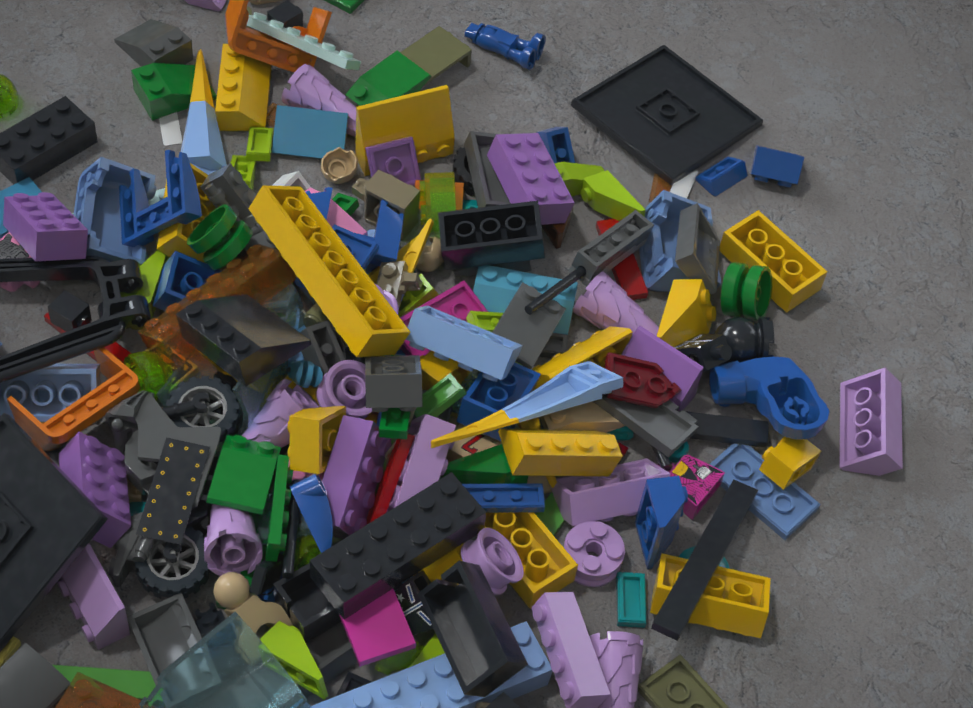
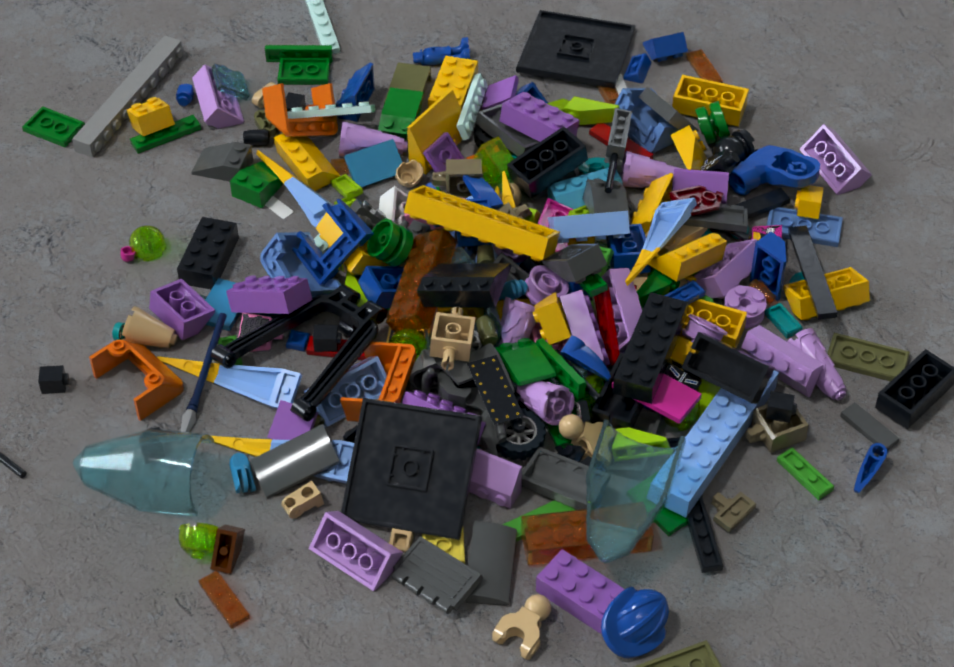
camera: 25 degrees left, 5 degrees down
(45, 296) = (297, 340): none -> blue tile
(170, 395) = (452, 337): none -> tan brick
(212, 34) = (256, 137): none -> black piece
(228, 412) = (486, 330): none -> olive piece
(369, 37) = (358, 90): none -> blue slope
(475, 119) = (471, 106): none -> light aqua plate
(484, 86) = (454, 74): none -> yellow brick
(528, 120) = (500, 92): none -> medium lavender tile
(556, 266) = (593, 164): none -> teal dish
(633, 545) = (759, 285): none -> clear orange cone
(805, 216) = (703, 66): none -> clear orange tile

